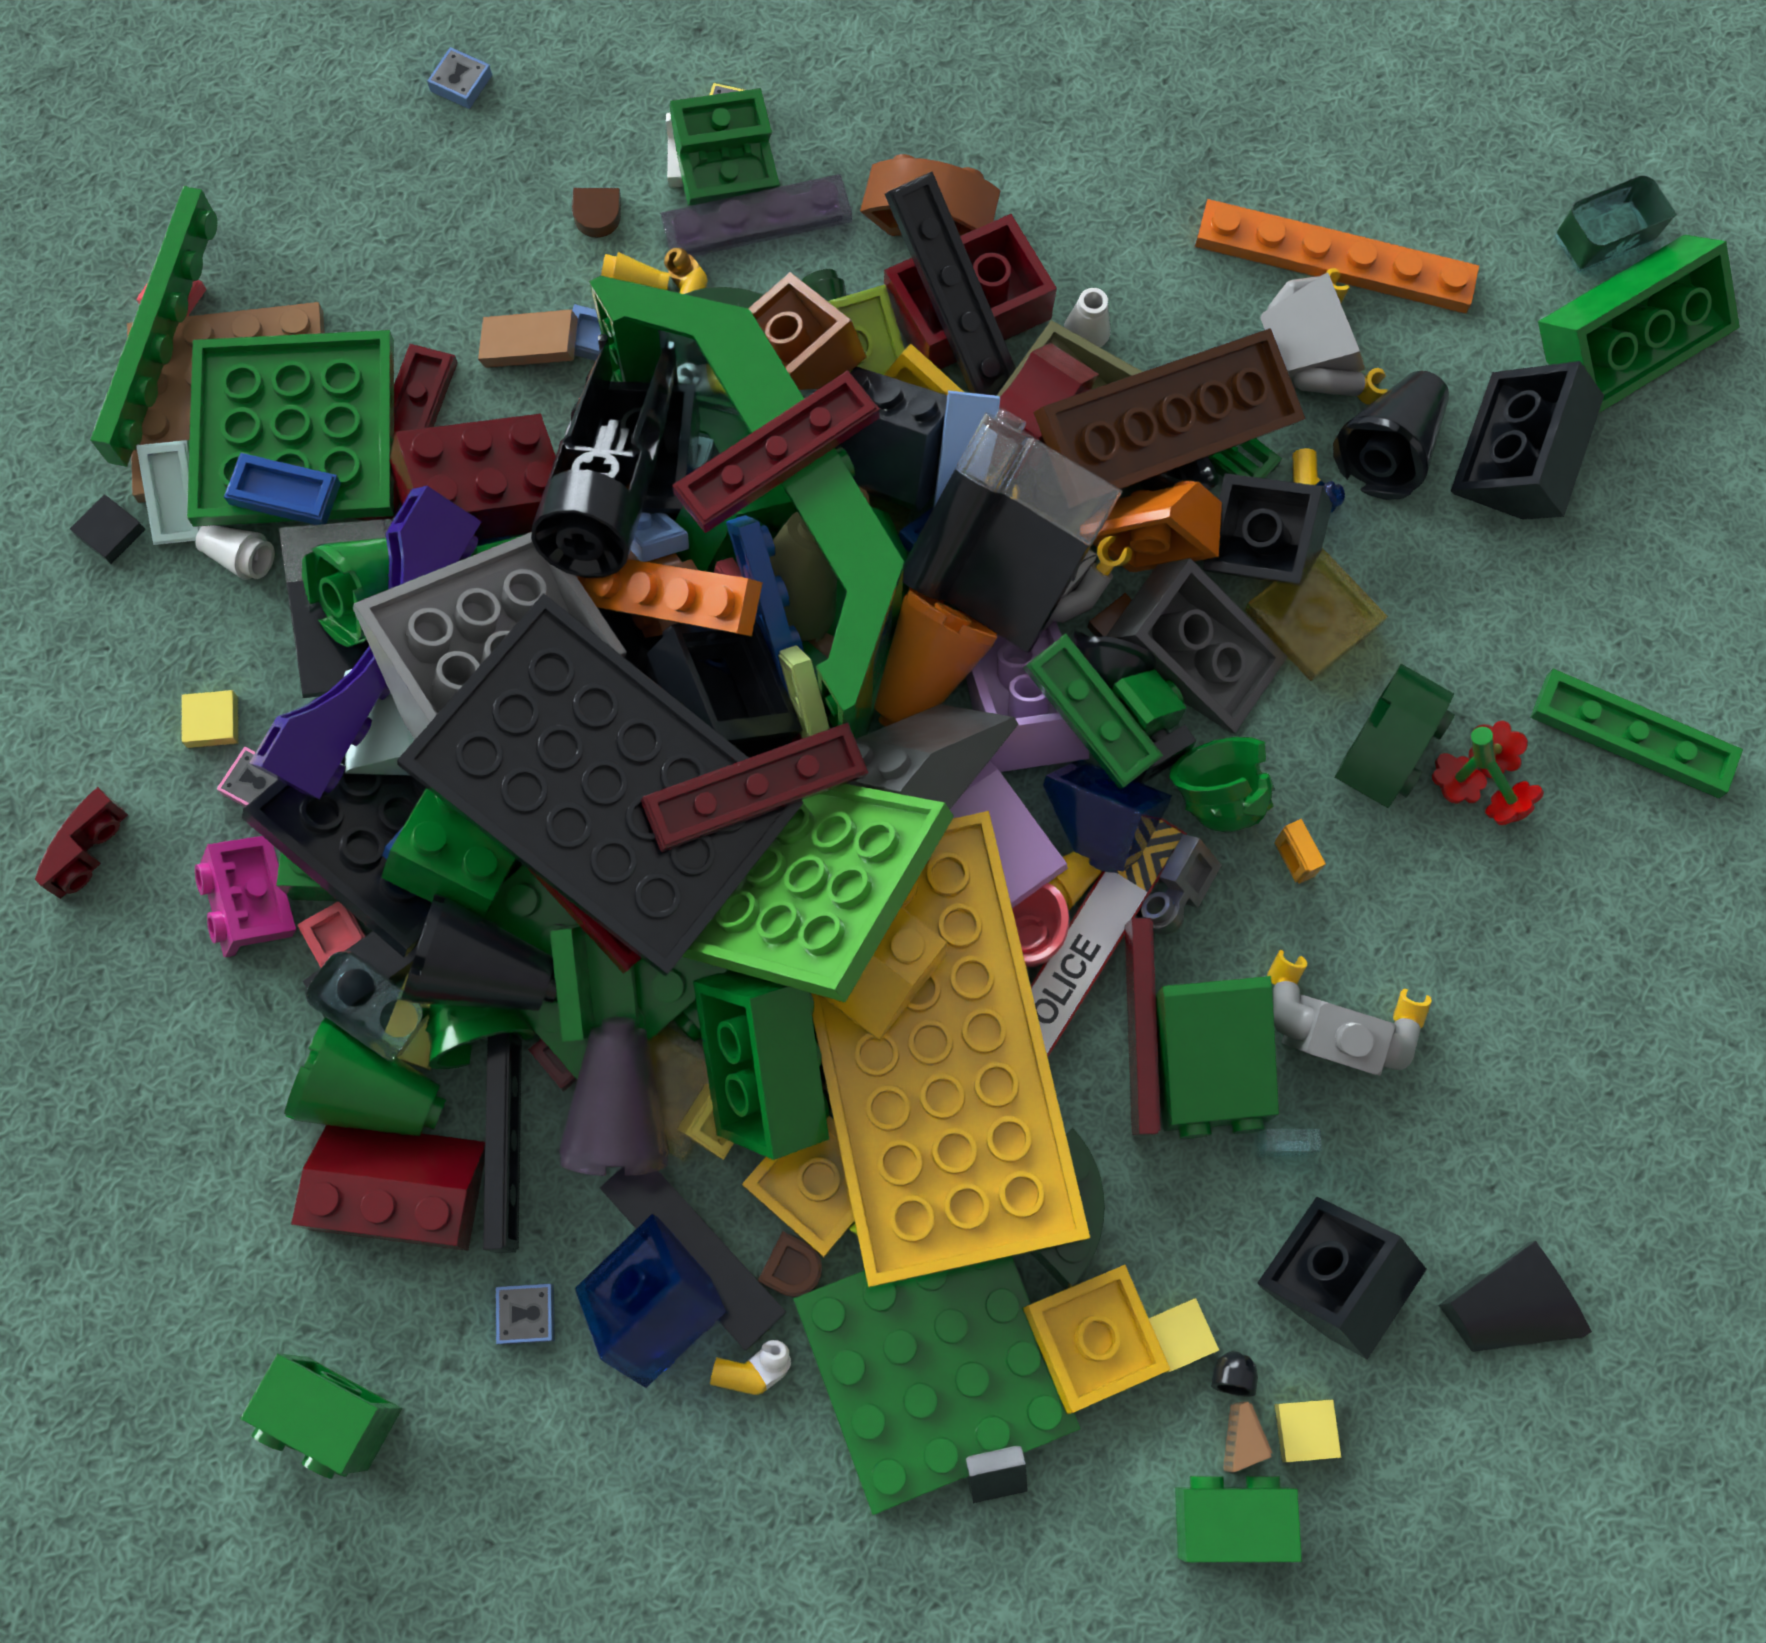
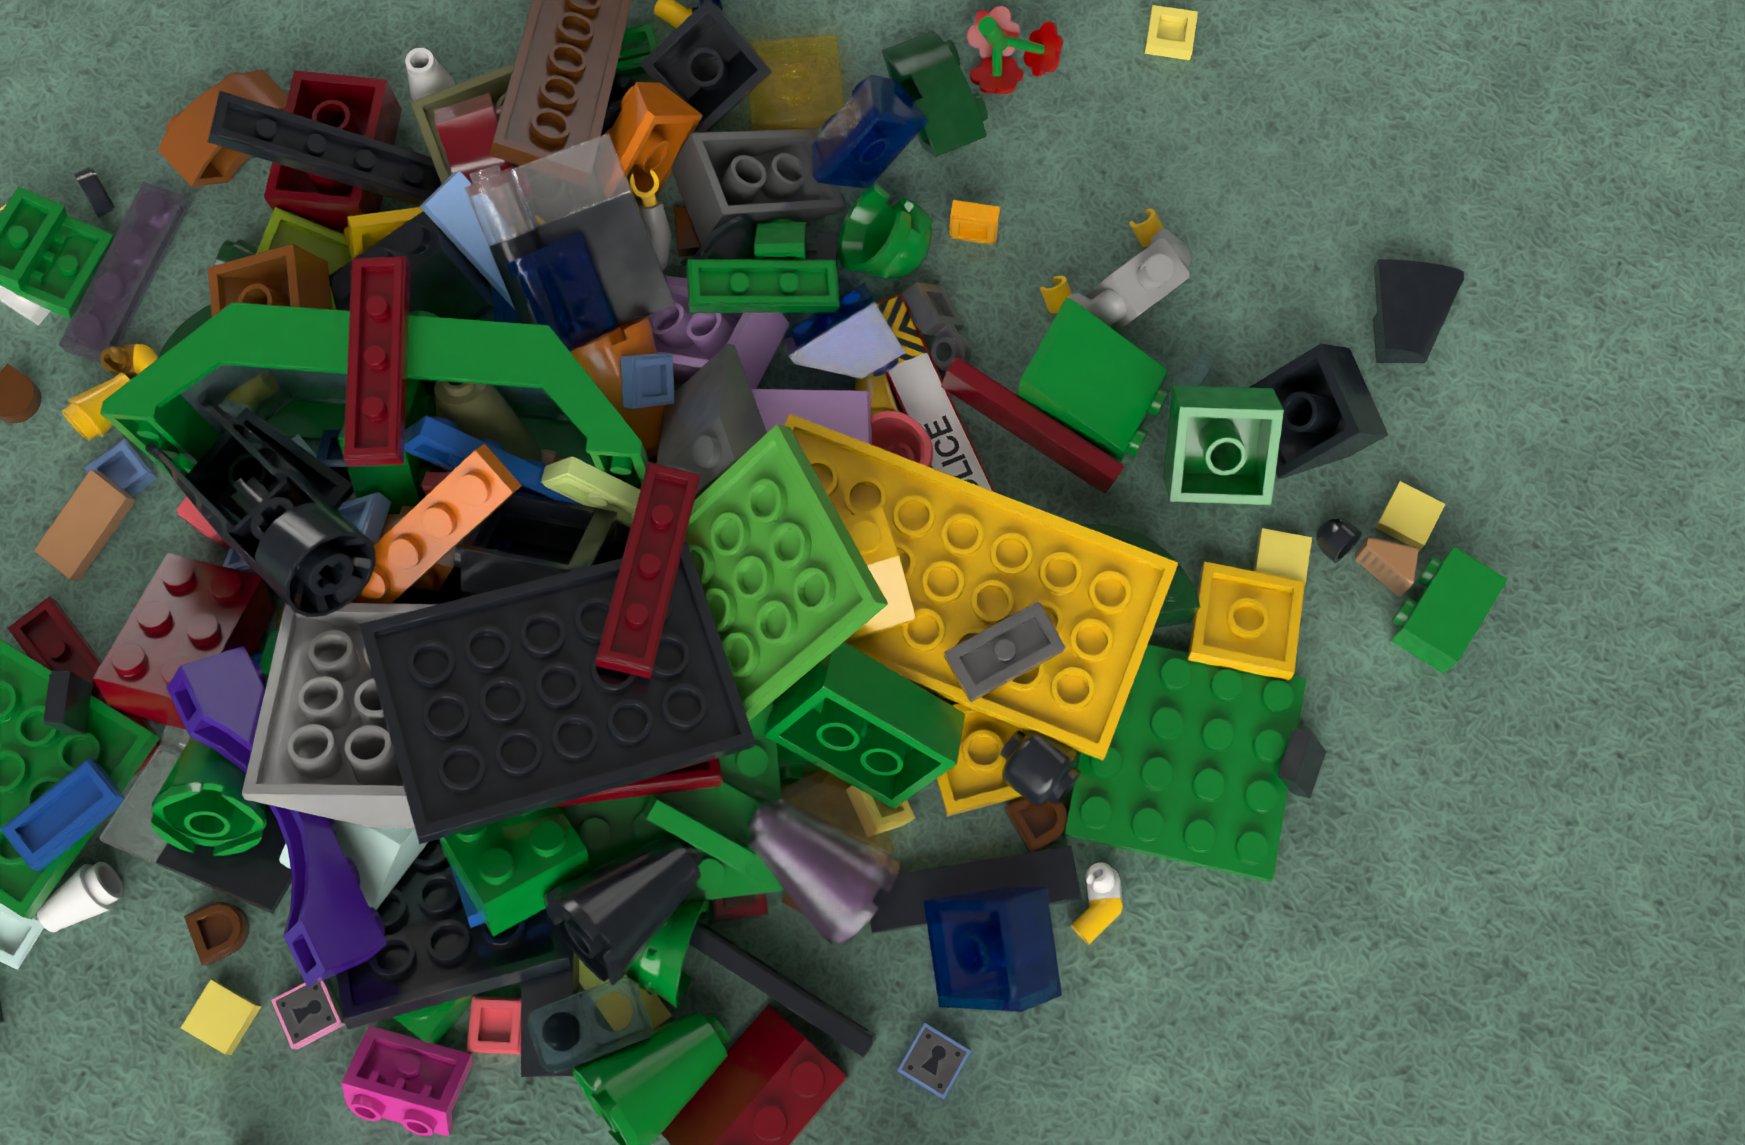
camera: 50 degrees left, 0 degrees up
(273, 668) = (217, 931): none -> reddish brown tile
(367, 428) = (67, 702): none -> black tile
(804, 145) = (94, 191): none -> black tile
(826, 1236) = (1039, 767): none -> black head
(898, 1135) = (1004, 651): none -> flat silver plate
(938, 675) = (647, 380): none -> medium blue tile
(970, 563) = (572, 289): none -> clear blue plate
(1241, 1209) = (1222, 444): none -> green brick
(1305, 703) = (866, 134): none -> clear blue slope
(1624, 905) = (1171, 32): none -> light yellow tile

